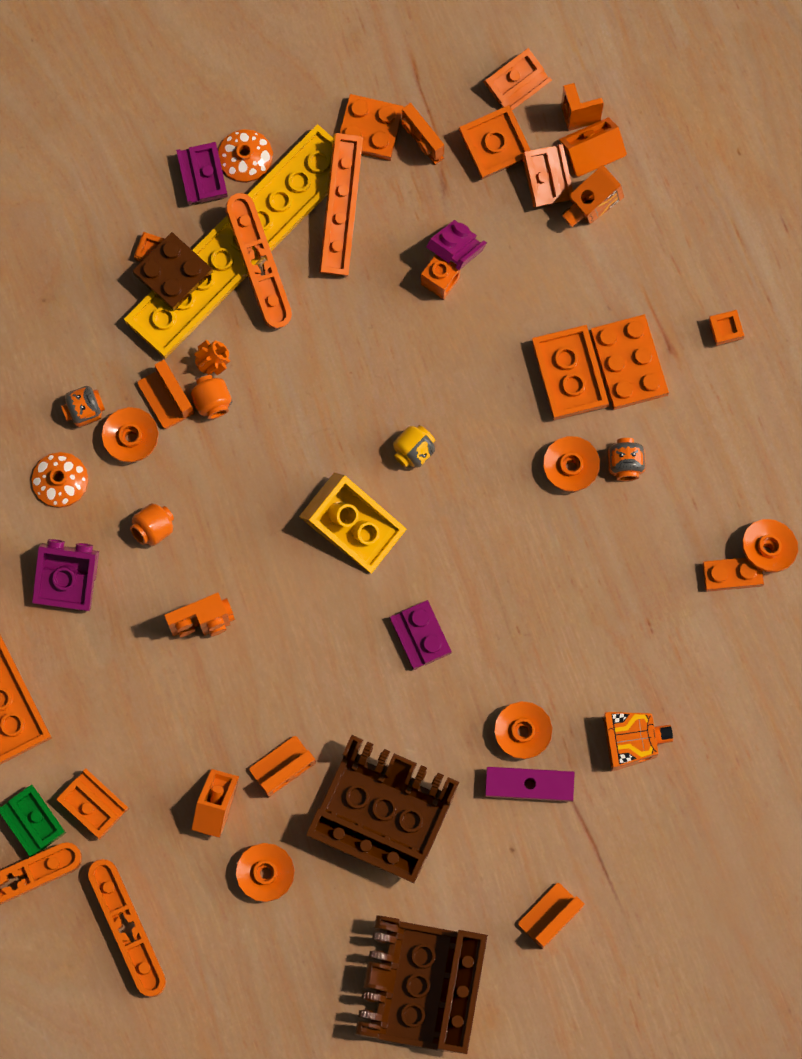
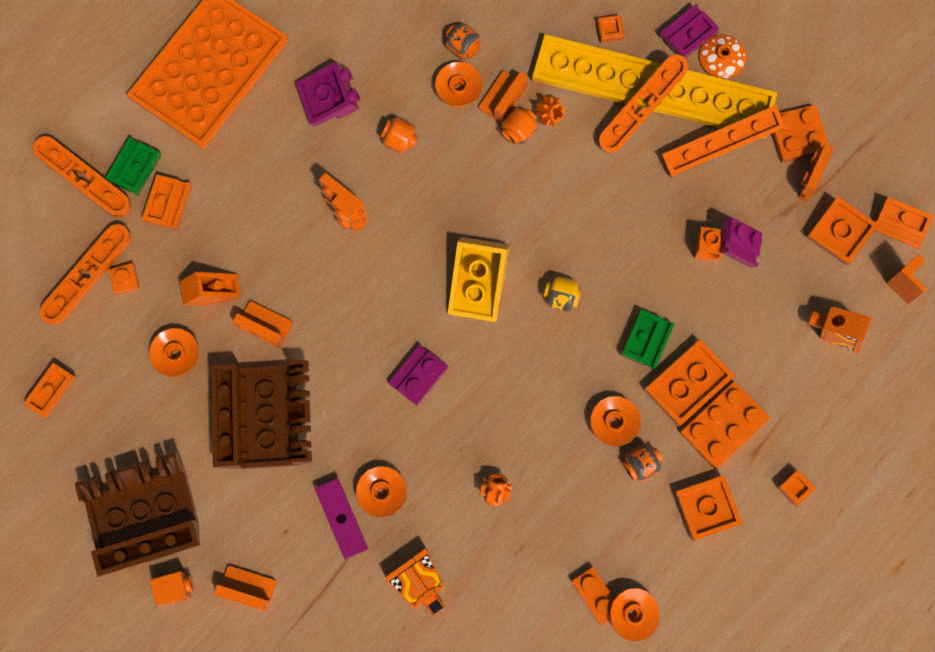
camera: 65 degrees right, 0 degrees up
(66, 491) = (400, 65): orange dish -> none
(152, 890) = (124, 279): none -> orange plate
(172, 271) = (600, 48): reddish brown plate -> none
(236, 1024) = (49, 390): none -> orange plate
(505, 389) = (647, 339): none -> green plate
(514, 989) = (171, 588): none -> orange brick
(547, 175) = (839, 283): orange plate -> none
(580, 615) = (495, 489): none -> orange gear
(594, 146) = (885, 308): orange panel -> none
(702, 421) = (708, 508): none -> orange plate

